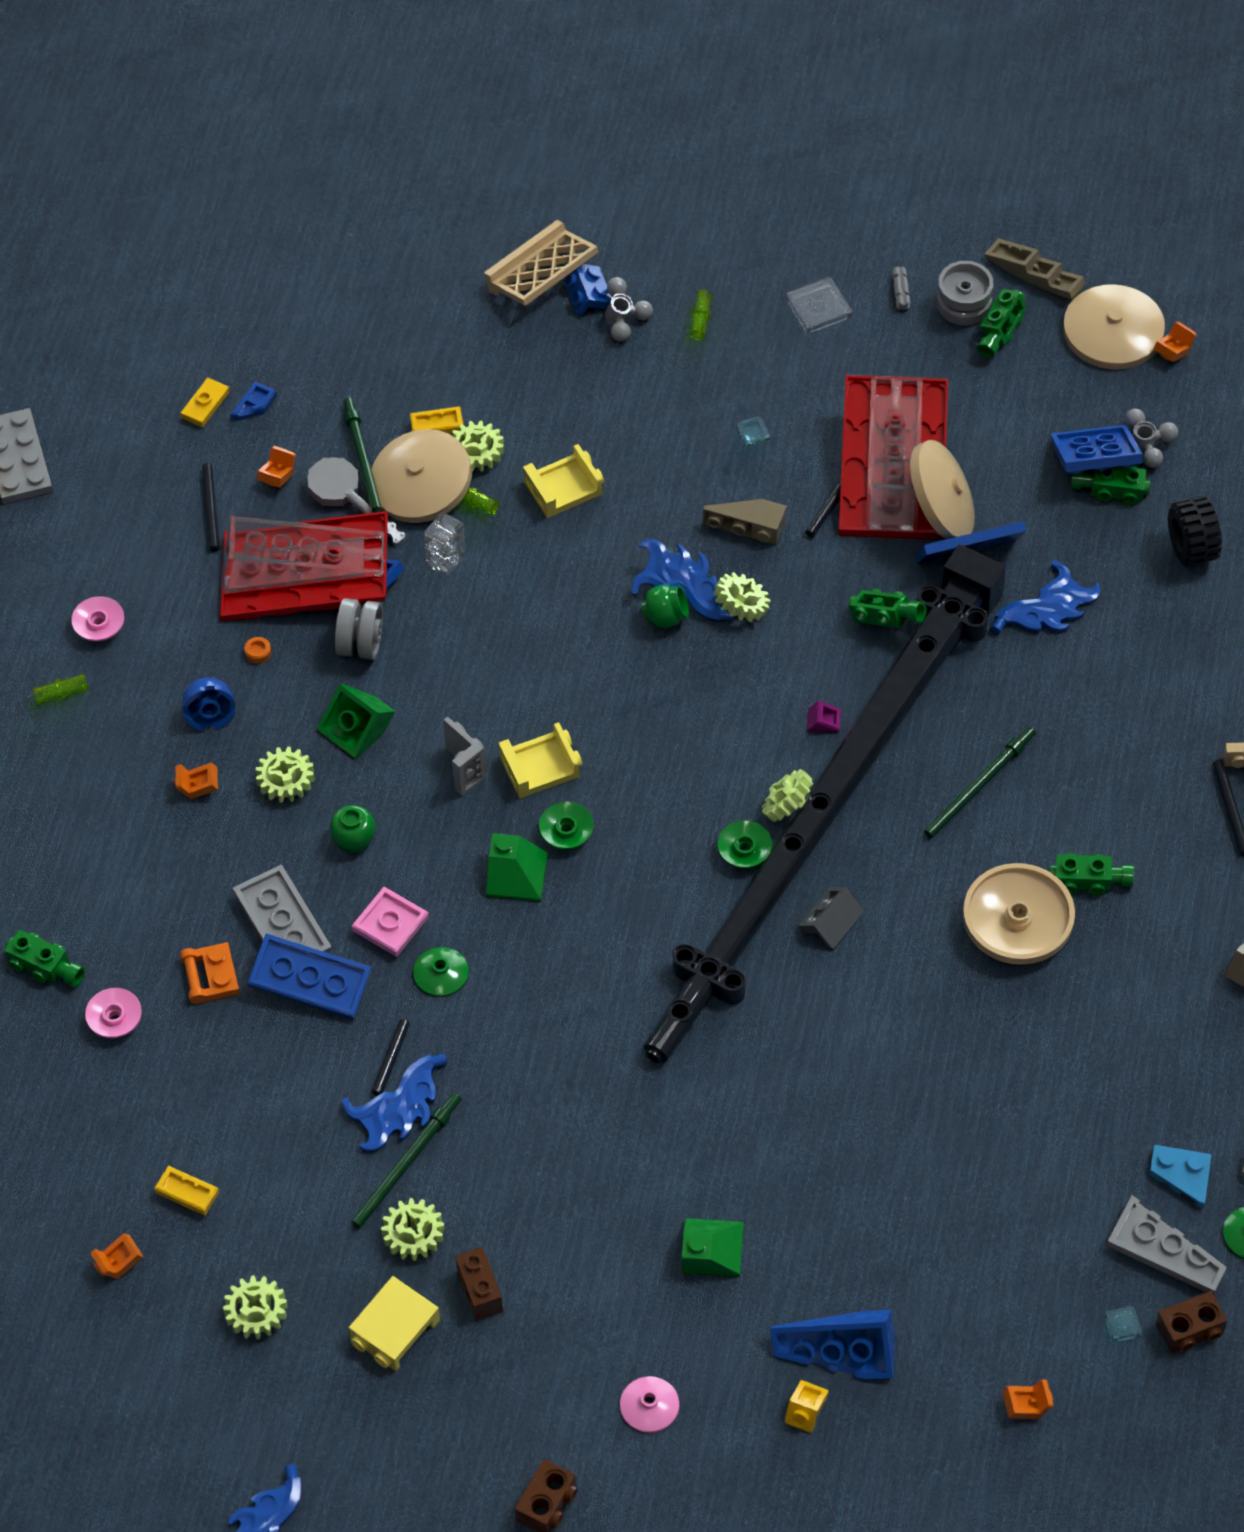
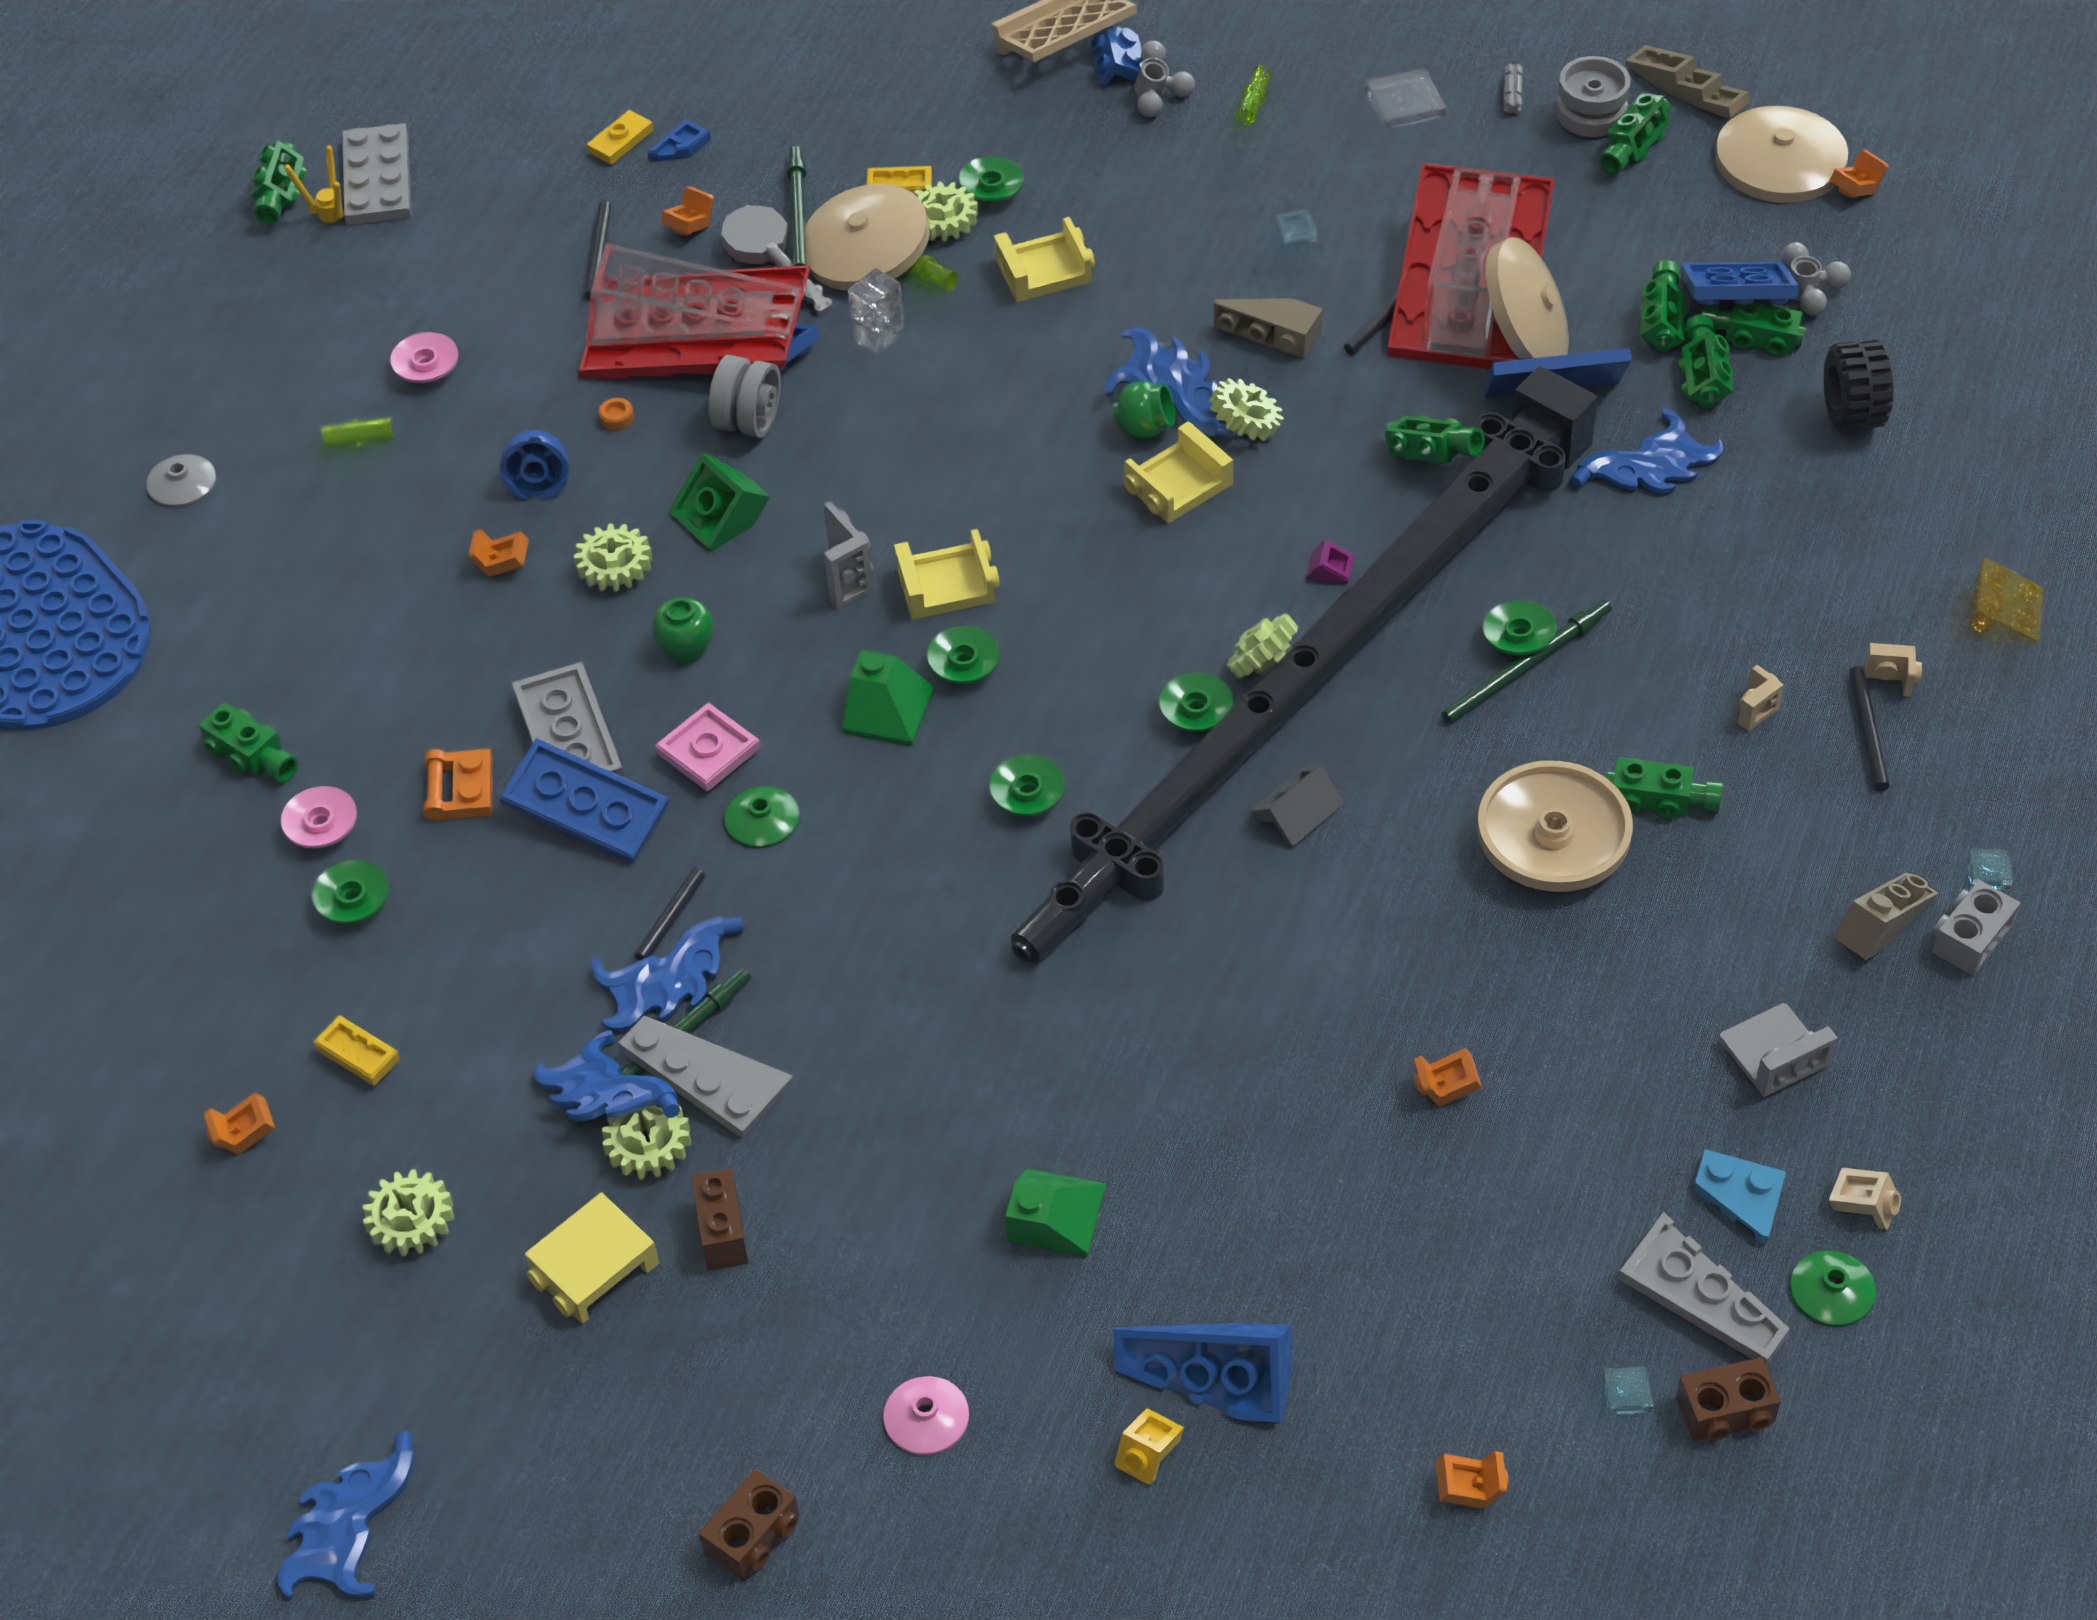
camera: 10 degrees right, 5 degrees down
(150, 1059) = (346, 881): none -> green dish
(368, 1195) = (598, 1086): none -> blue piece
(451, 1179) = (709, 1076): none -> light grey wing
(509, 412) = (992, 178): none -> green dish
(629, 916) = (1023, 775): none -> green dish
(700, 656) = (1180, 475): none -> light yellow panel
(970, 1114) = (1447, 1077): none -> orange bracket
(971, 749) = (1519, 627): none -> green dish
(1042, 475) = (1663, 308): none -> green brick
(1079, 520) = (1705, 363): none -> green brick
(1153, 794) = (1761, 698): none -> tan bracket
(1195, 1064) = (1778, 1048): none -> light grey bracket

